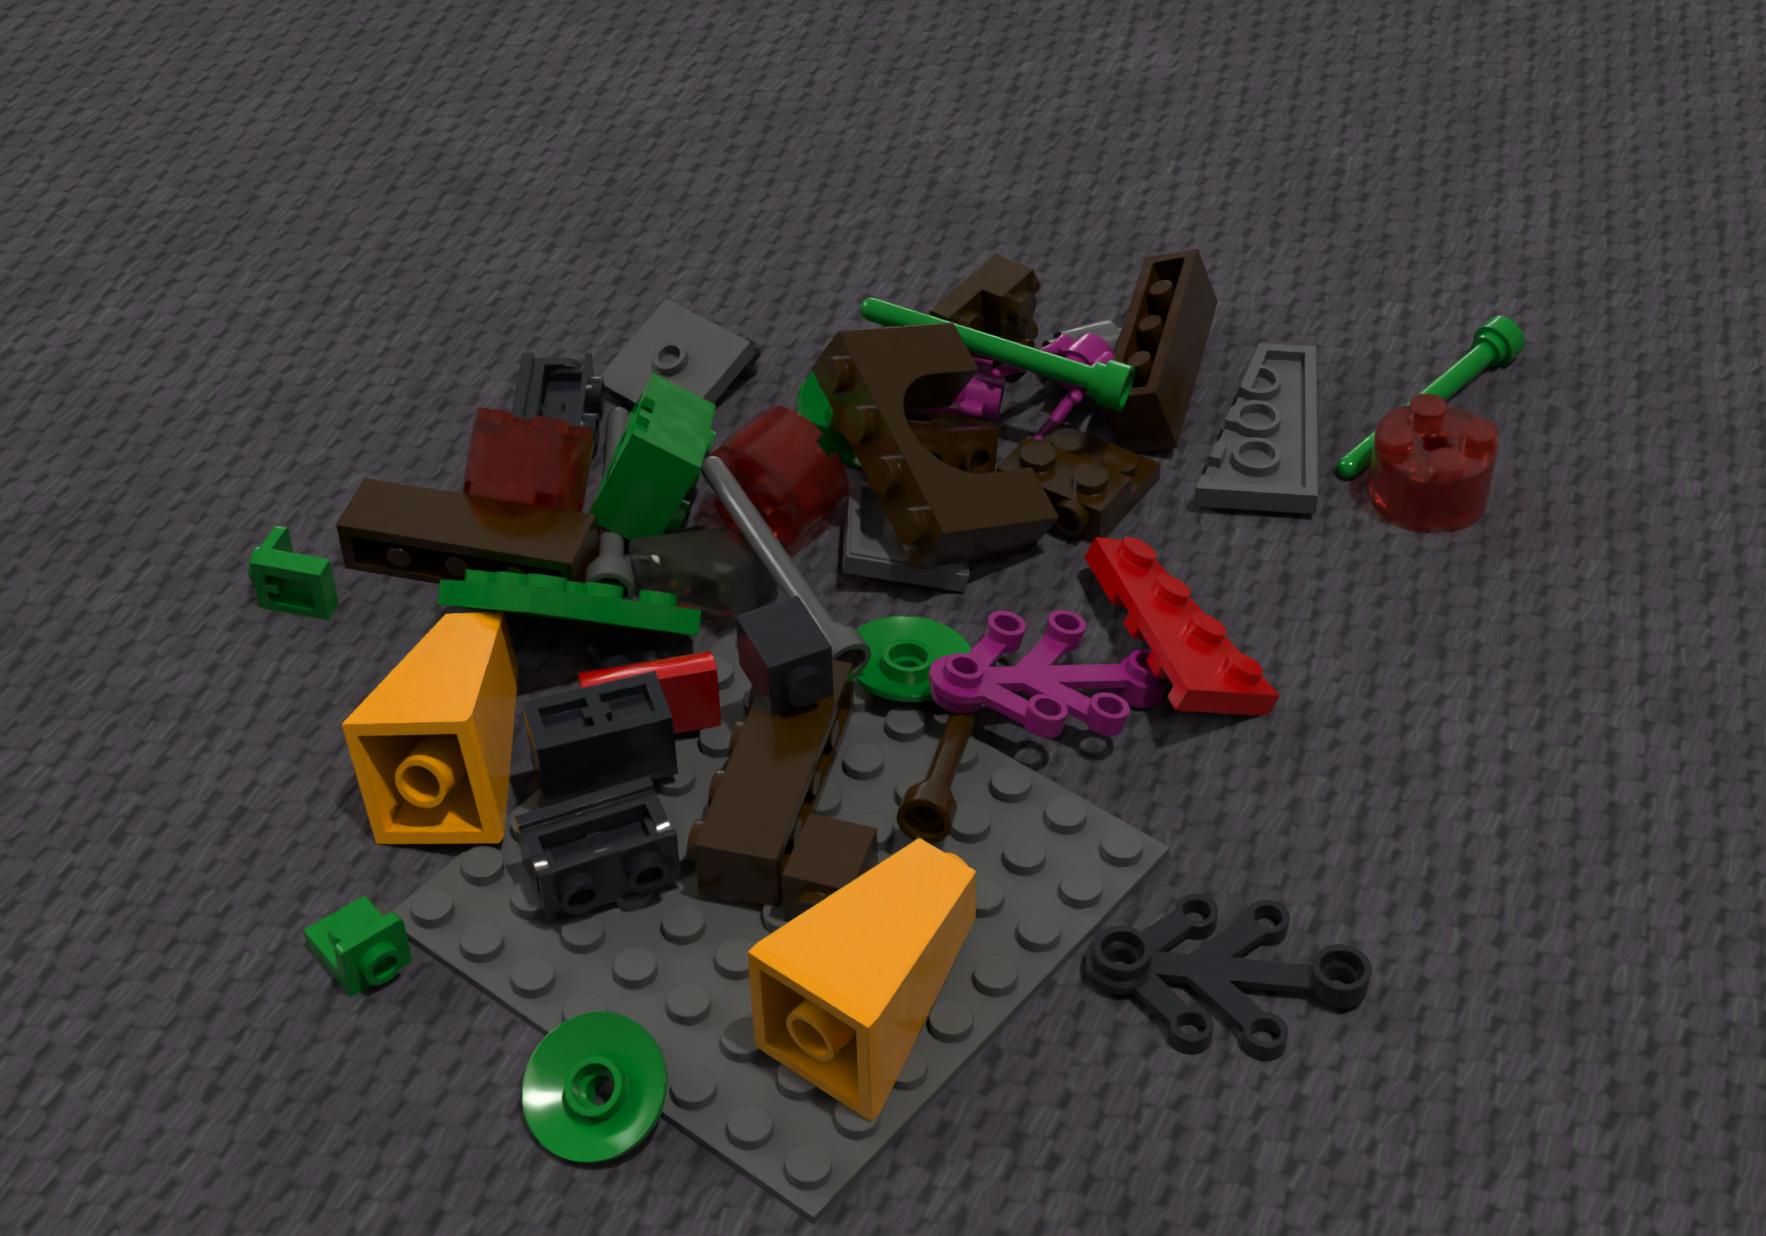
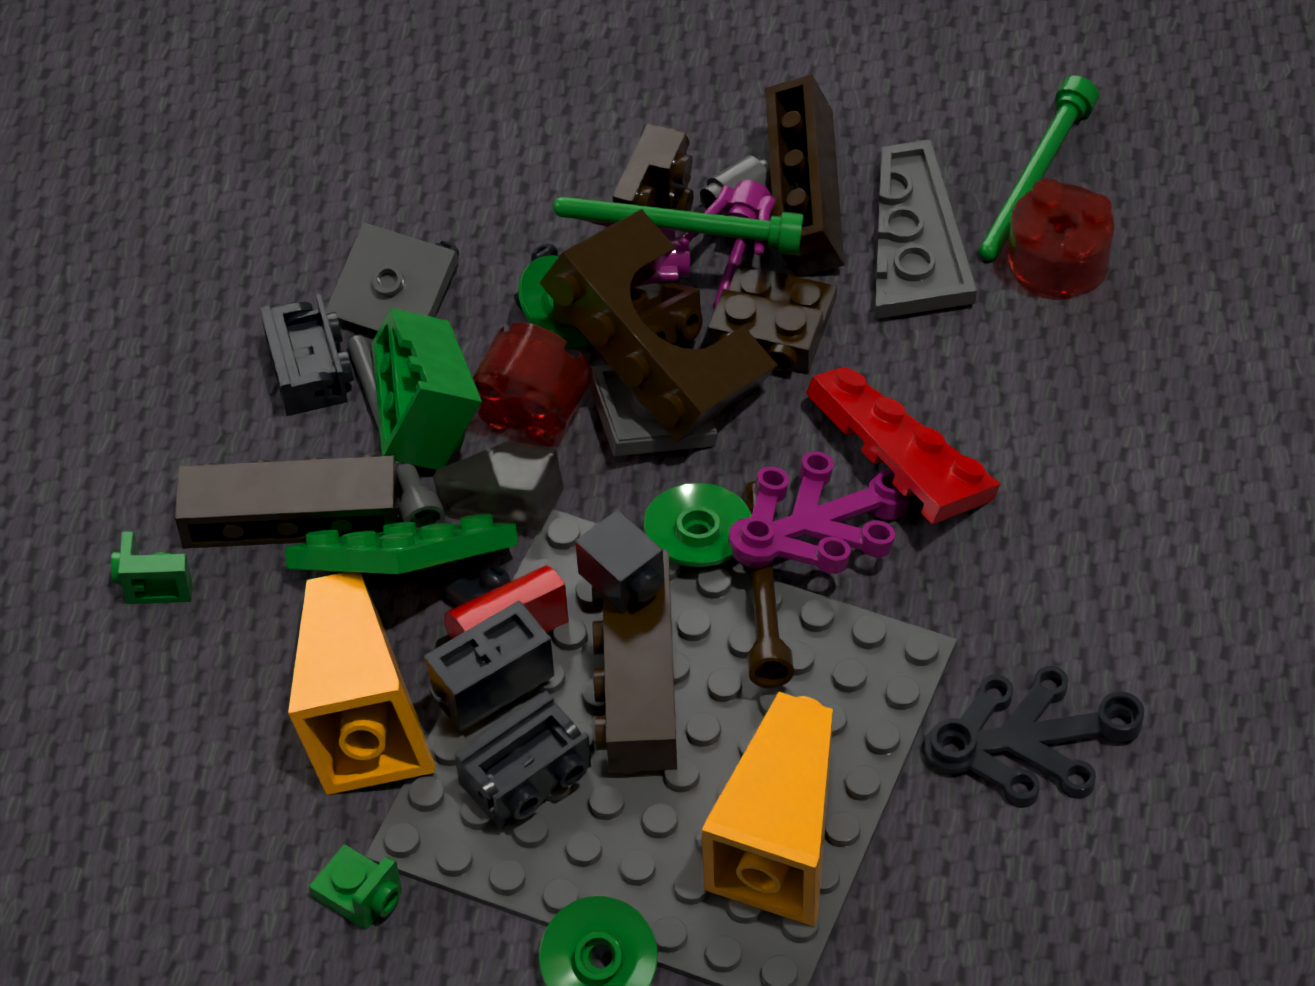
camera: 15 degrees left, 10 degrees up
(528, 460) = (317, 421): clear red brick -> none
(825, 860) = (714, 735): dark brown brick -> none
(845, 640) = (569, 467): dark grey piece -> none

